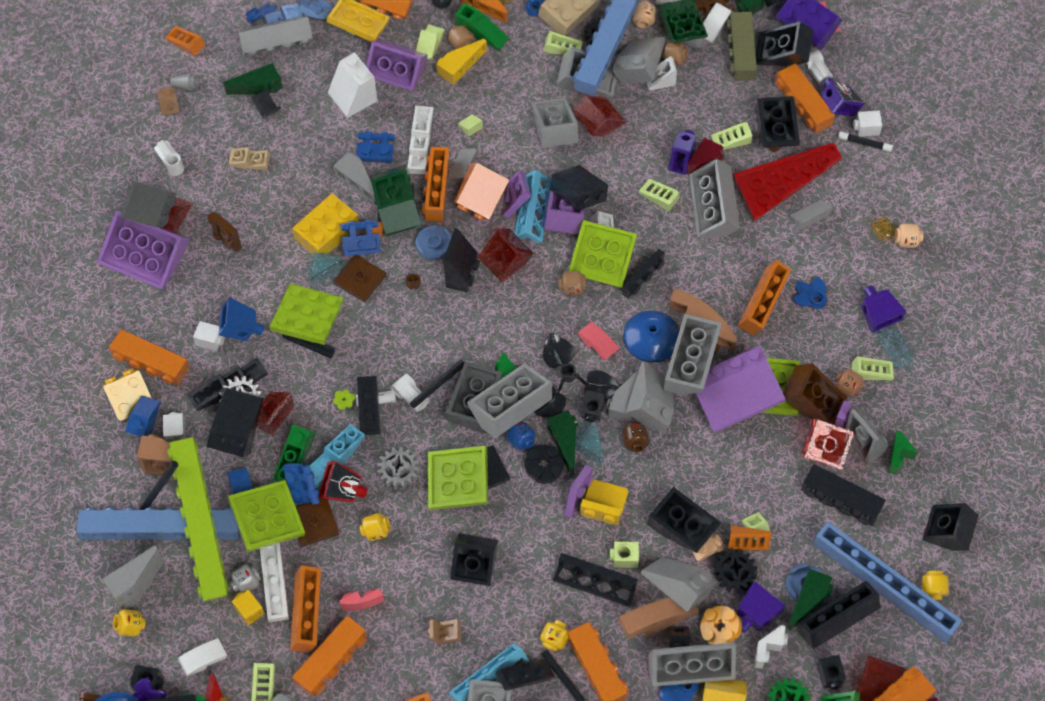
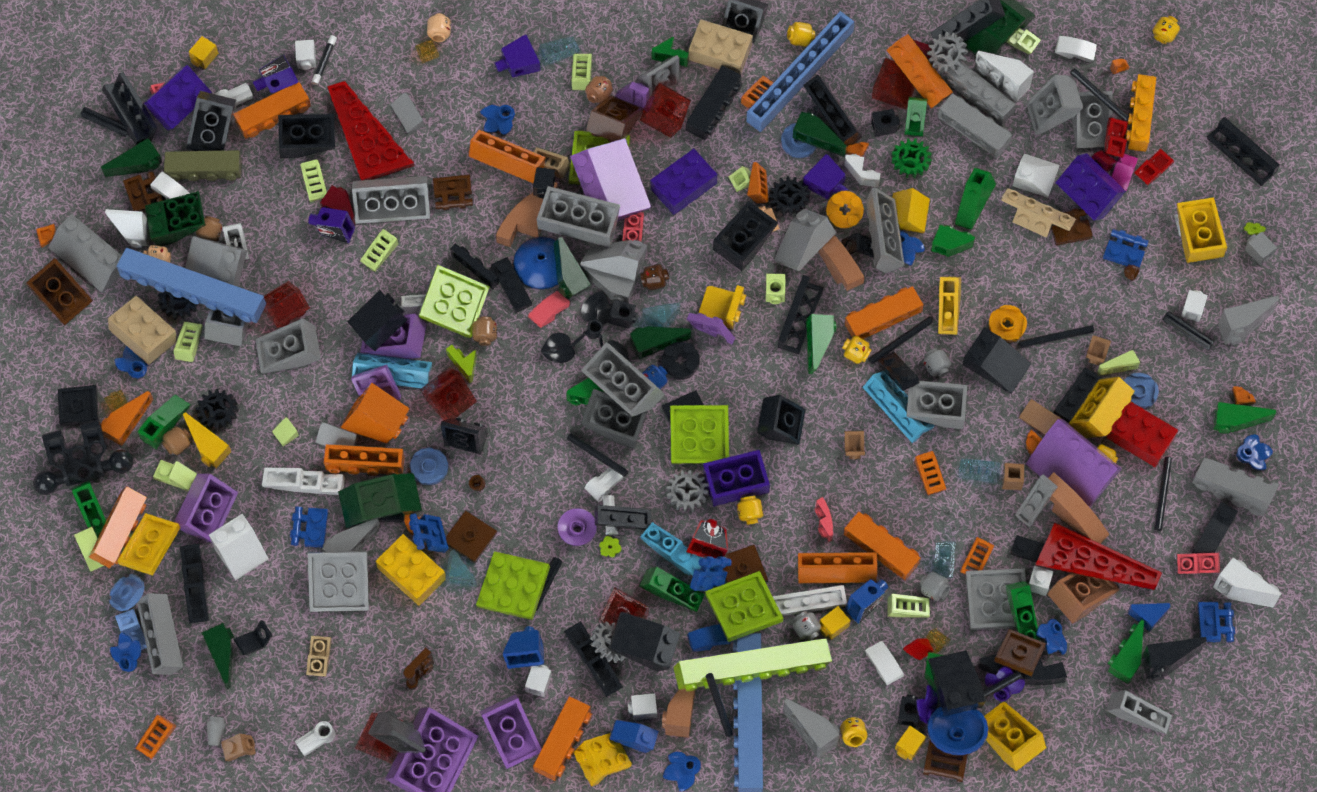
camera: 90 degrees left, 5 degrees up
(109, 465) = (679, 771): none -> blue plate
(112, 678) = (910, 743): none -> yellow brick
(162, 312) = (511, 731): none -> medium lavender slope
(263, 631) = (865, 599): none -> blue torso
(315, 166) = (338, 581): none -> light grey plate
(320, 61) = (194, 583): none -> black slope
(363, 360) = (577, 518): none -> medium lavender dish
(408, 512) = (736, 478): none -> dark purple brick
(493, 67) = (220, 416): none -> black gear
(537, 267) = (466, 364): none -> lime slope
(570, 597) = (819, 334): none -> slope
(626, 308) = (511, 285): none -> black plate
(632, 355) = (569, 273): none -> slope
(690, 419) = (633, 227): none -> coral slope
(731, 254) = (452, 186): none -> reddish brown plate
(732, 326) = (543, 179): none -> black brick
(746, 464) = (683, 181): none -> dark purple brick
(771, 328) = (561, 163): none -> tan slope
(797, 644) = (857, 148): none -> orange tile
(857, 532) = (746, 100): none -> orange slope
(862, 40) = (203, 52): none -> yellow brick
(910, 501) = (719, 46): none -> tan brick

